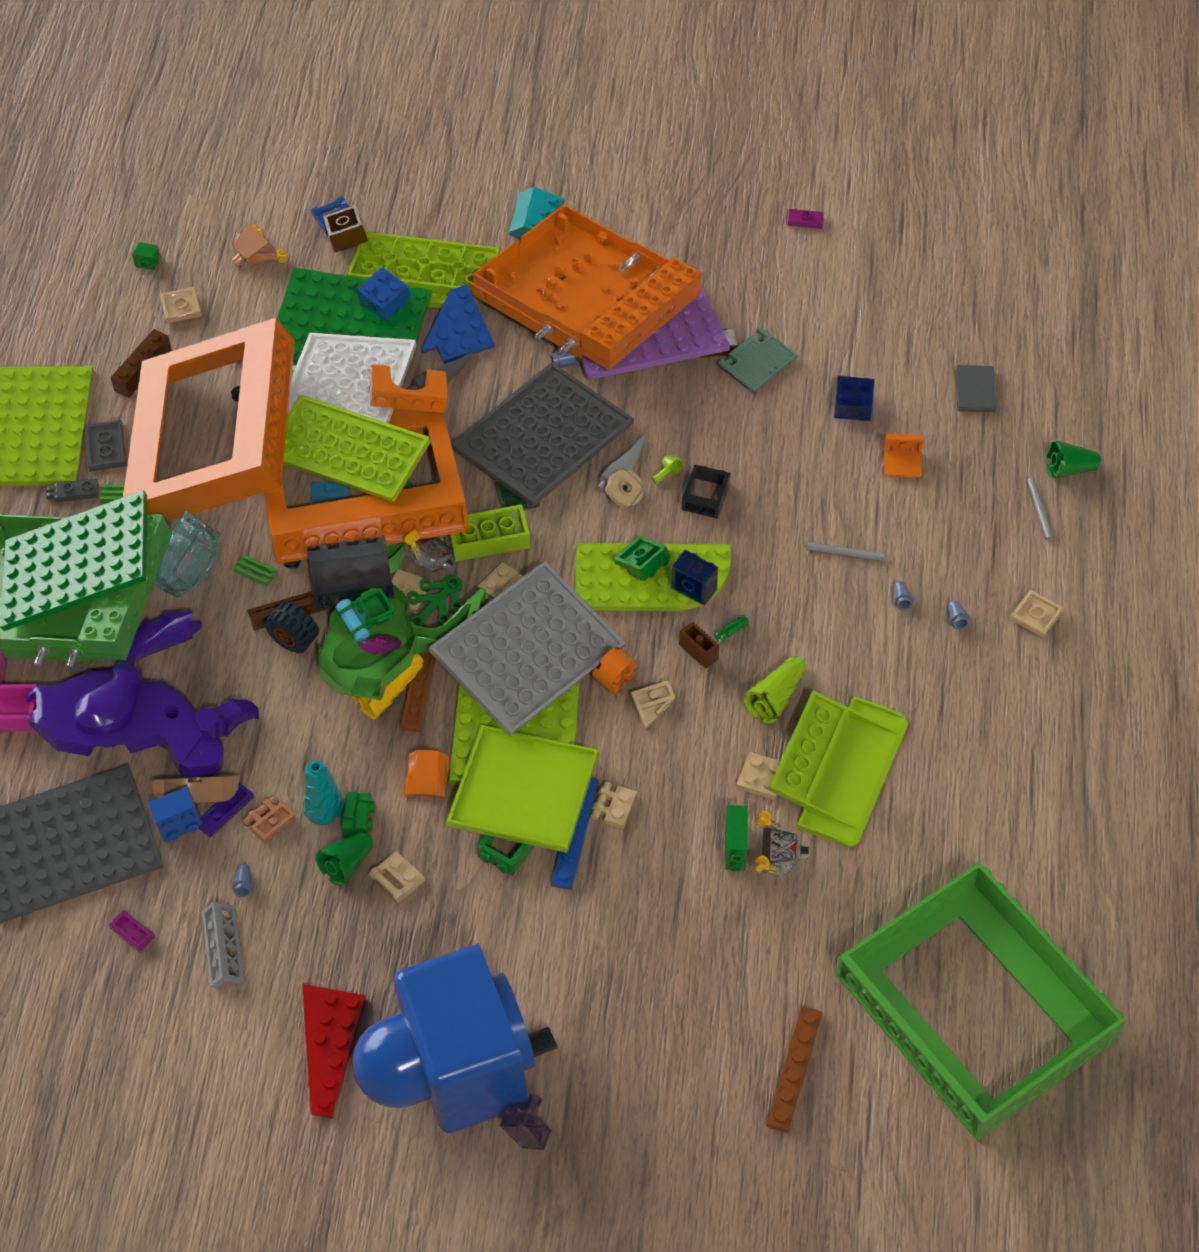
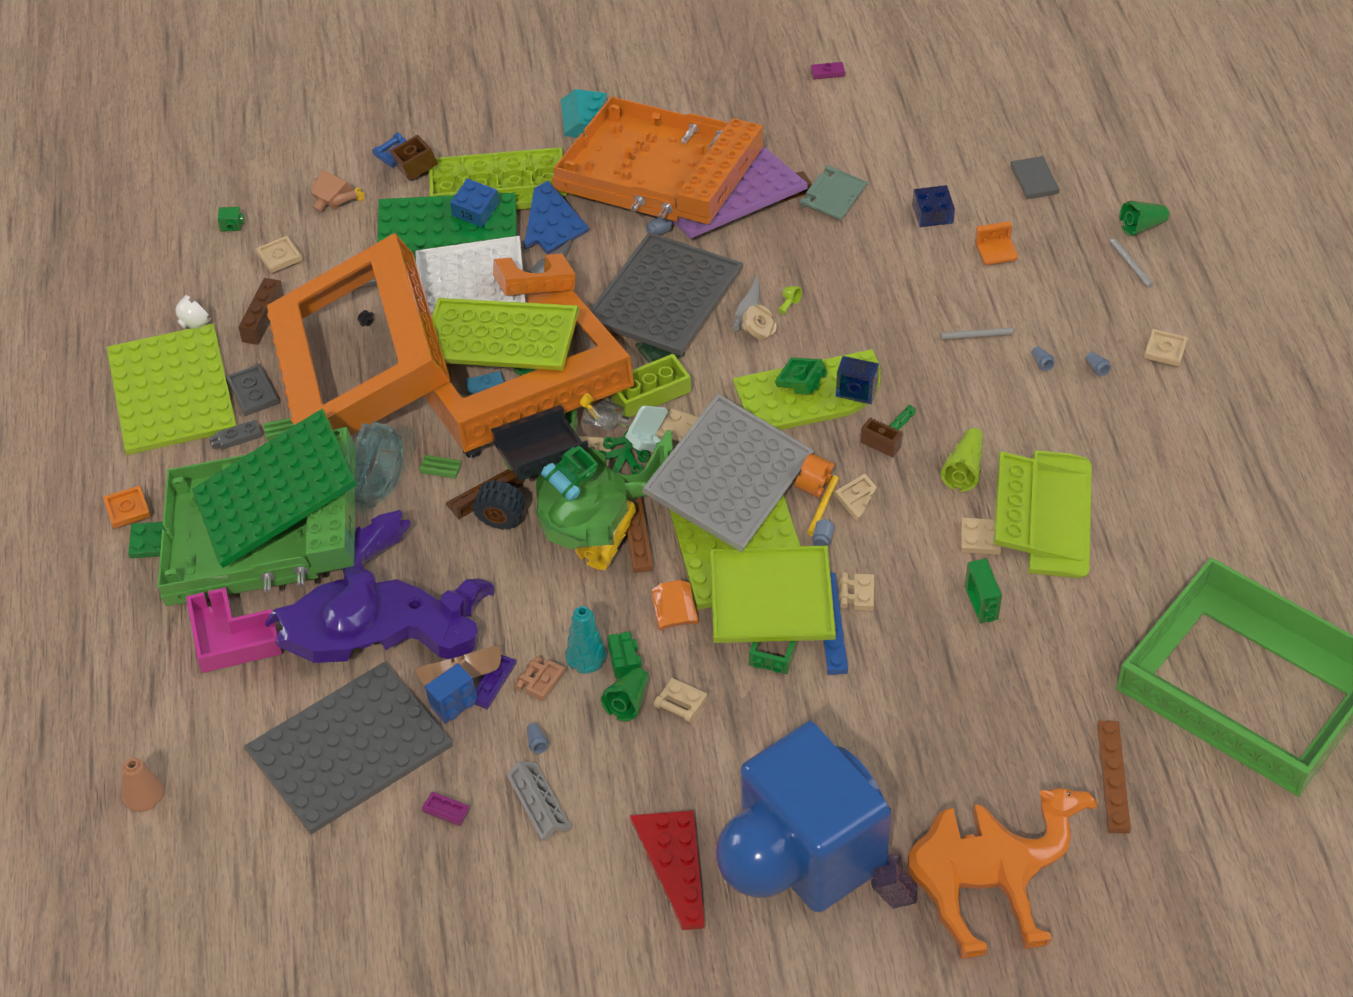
camera: 15 degrees left, 5 degrees down
(72, 352) = (191, 314): none -> white cylinder
(380, 644) = (593, 497): magenta plate -> none
(464, 579) = (645, 426): none -> light aqua bracket
(602, 735) = (823, 533): none -> sand blue brick
(615, 703) = (823, 504): none -> yellow bar
(634, 1126) = (992, 859): none -> orange animal
(703, 505) = (841, 322): black window -> none
(778, 848) = (1022, 591): torso -> none

